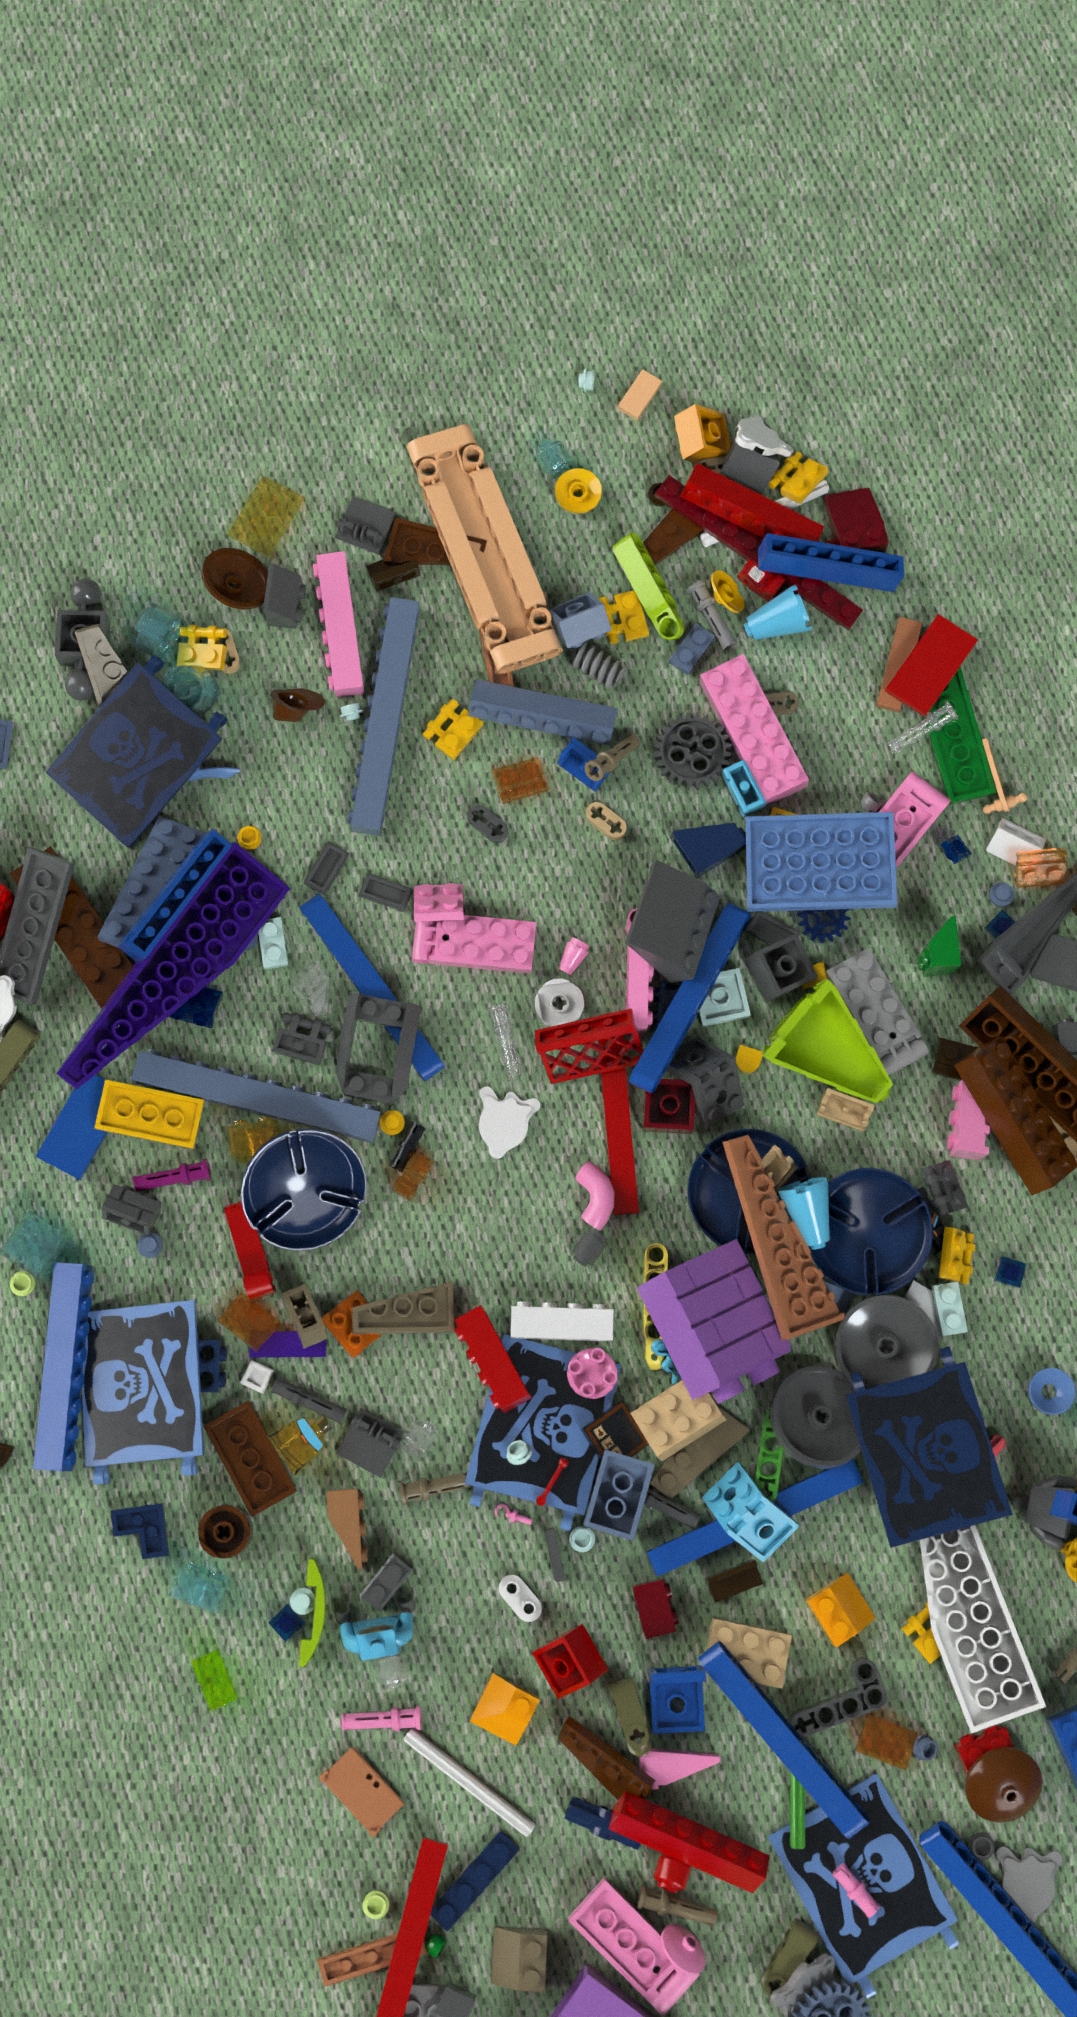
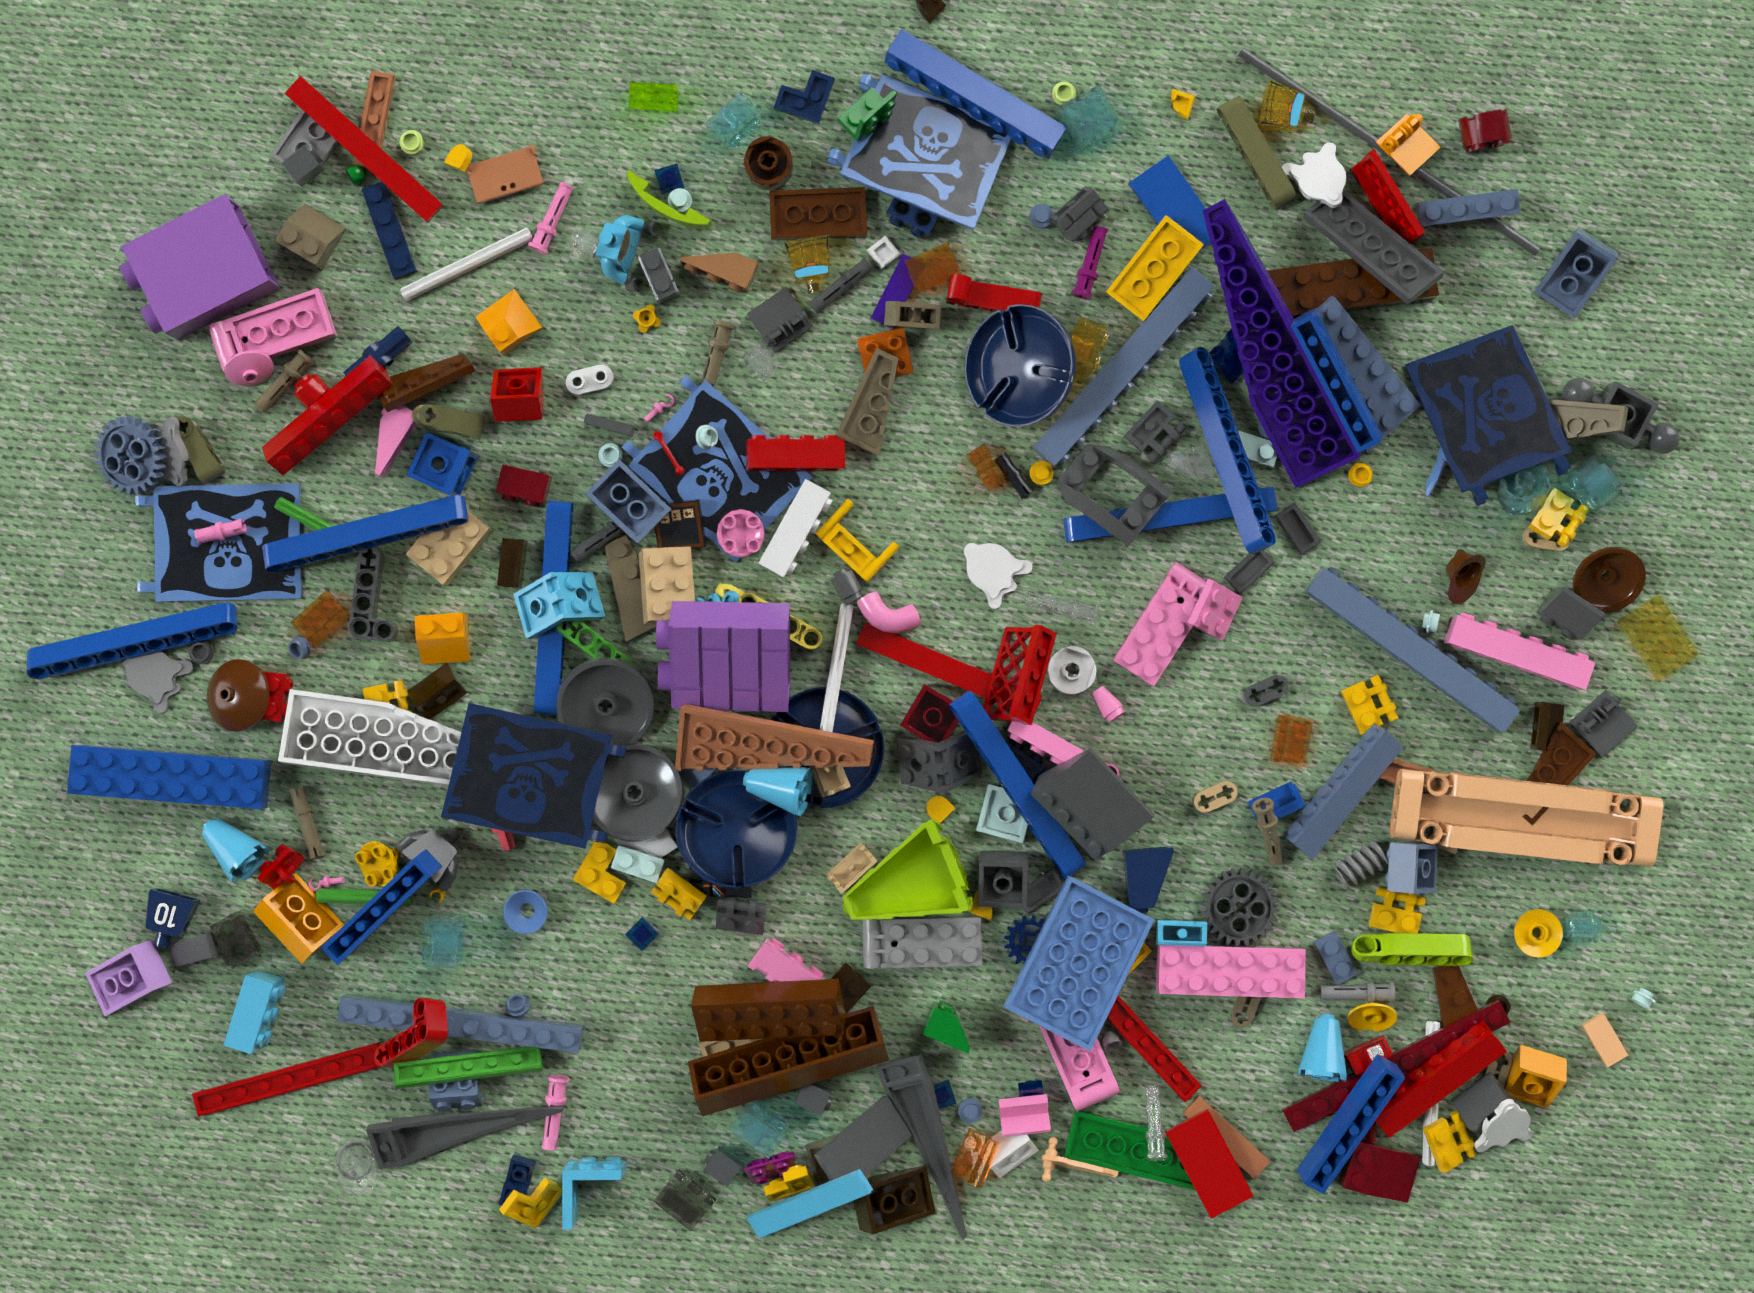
camera: 120 degrees right, 10 degrees up
(132, 1458) = (866, 113): none -> green bracket
(287, 962) = (1227, 450): none -> blue beam
(368, 1846) = (459, 157): none -> yellow tile
(432, 1565) = (640, 315): none -> yellow plate
(553, 1262) = (849, 548): none -> yellow plate
(672, 1216) = (836, 667): none -> white axle
(860, 761) = (1152, 1050): none -> red tile
(894, 1589) = (436, 692): none -> dark brown panel
(979, 843) = (1024, 1115): none -> bright pink panel
(983, 1343) = (593, 872): none -> yellow plate

